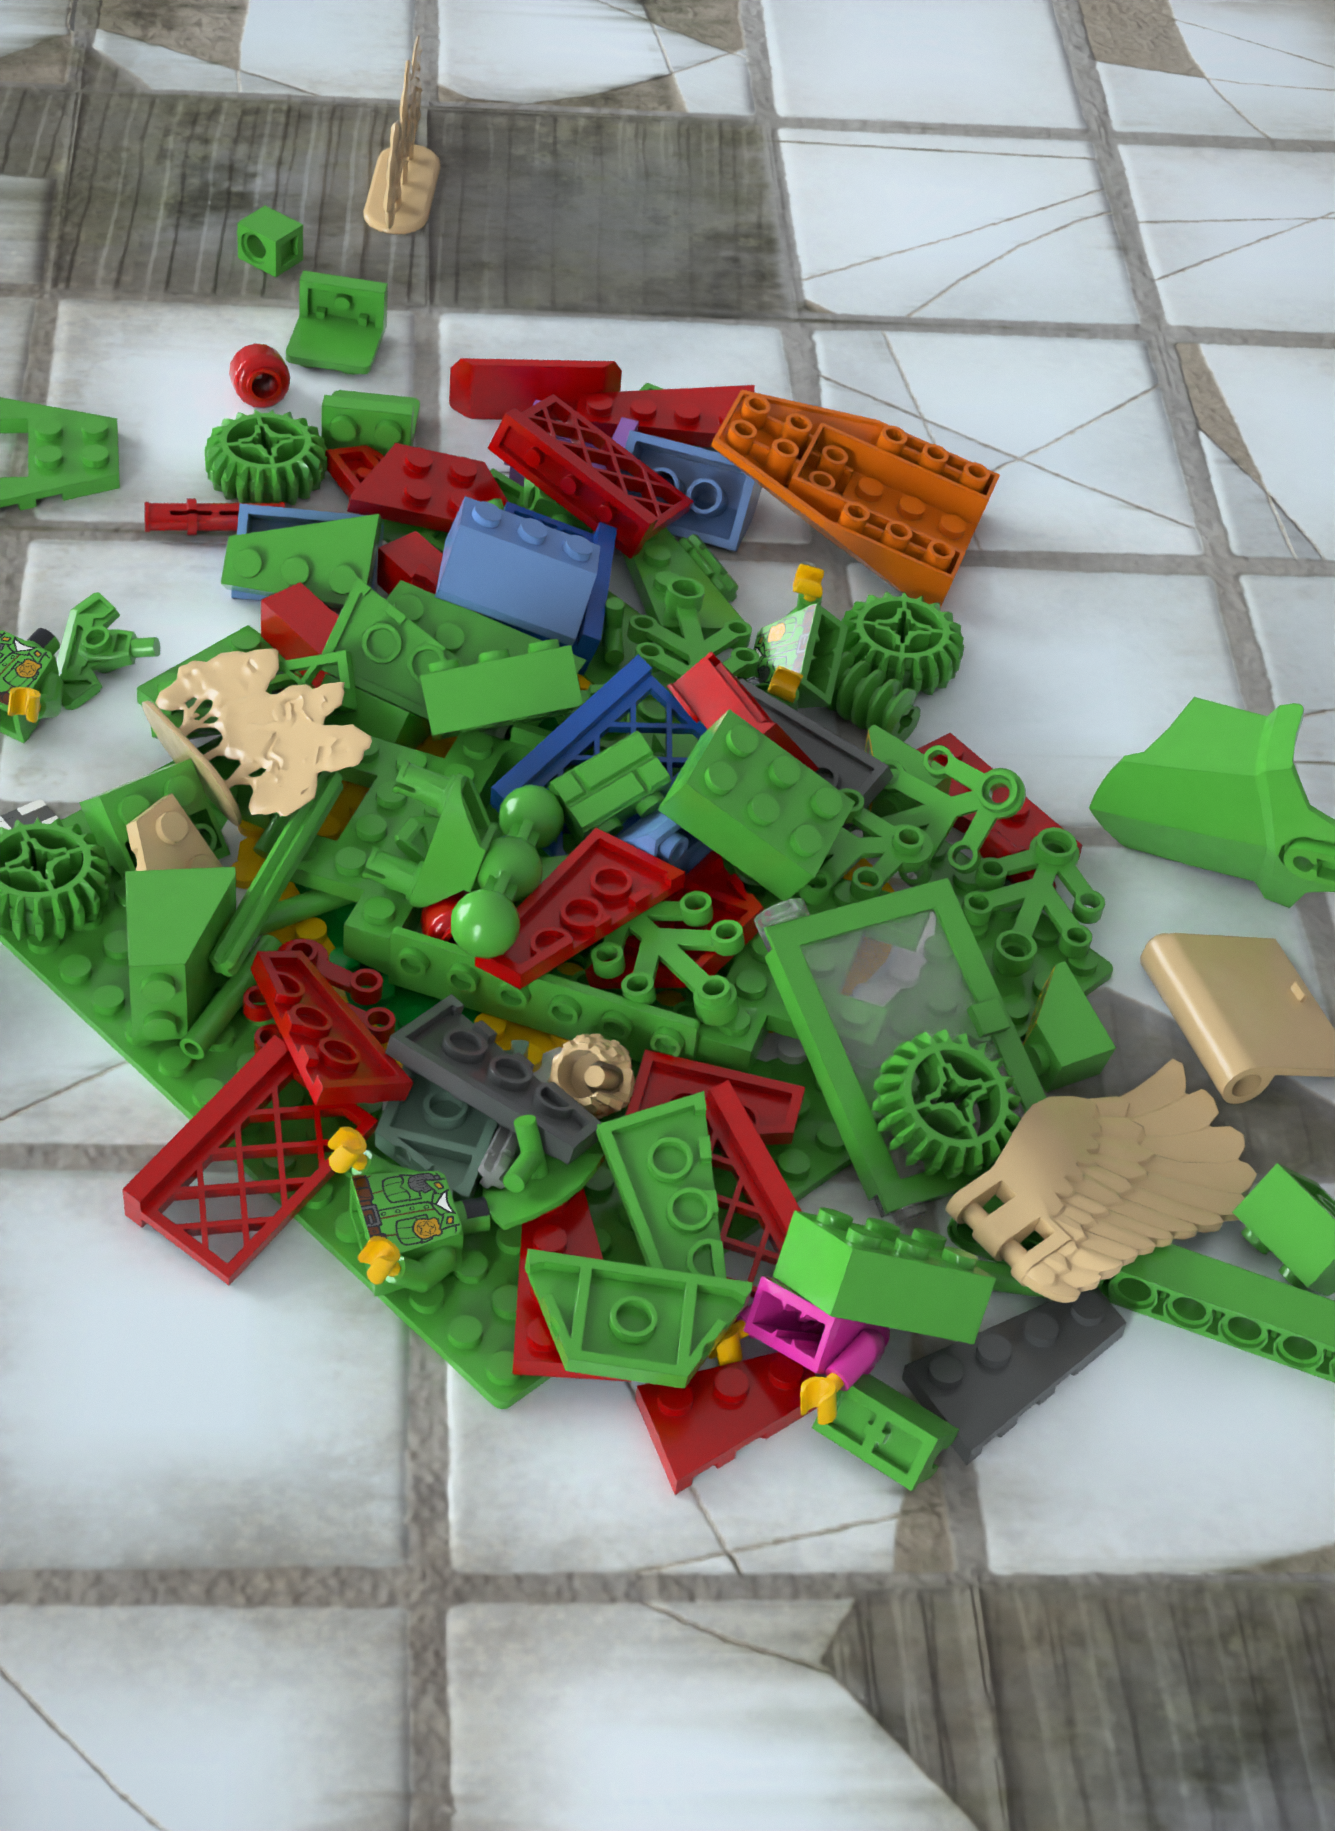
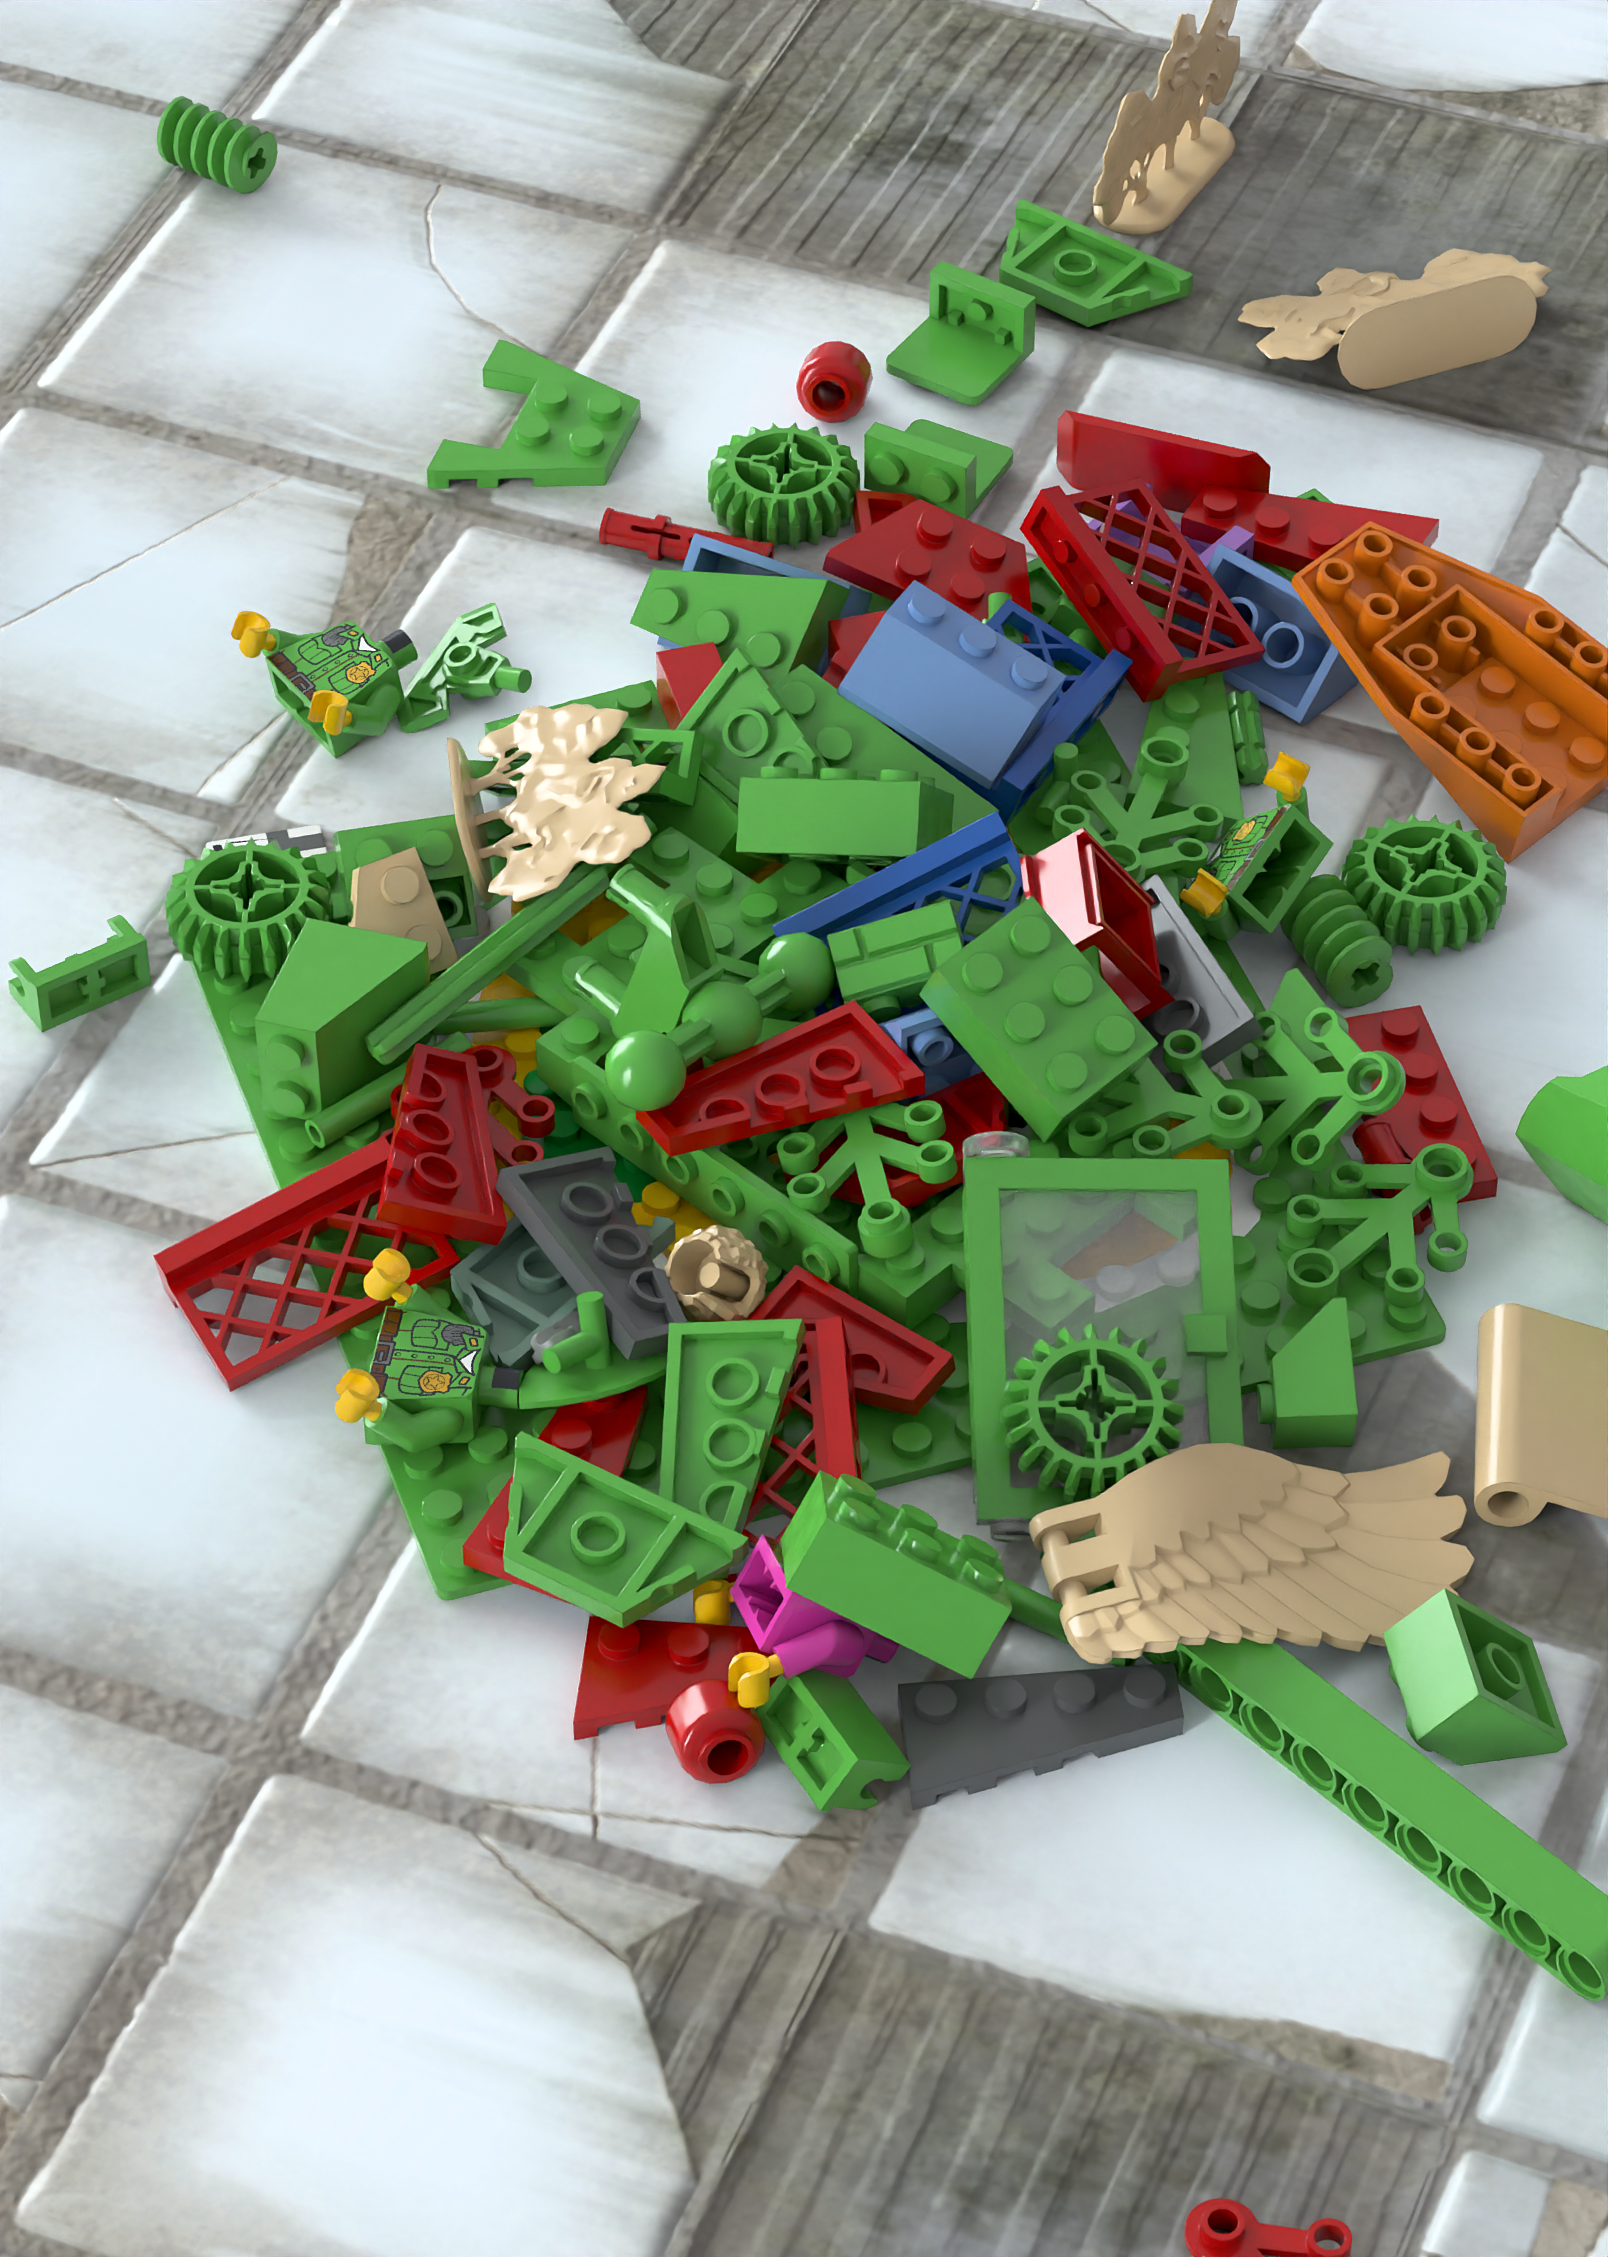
camera: 30 degrees right, 0 degrees up
(270, 241) = (946, 213): bright green brick -> none
(405, 263) = (1084, 271): none -> bright green wing
(649, 257) = (1404, 330): none -> tan plant
(796, 1452) = (713, 1733): none -> red head

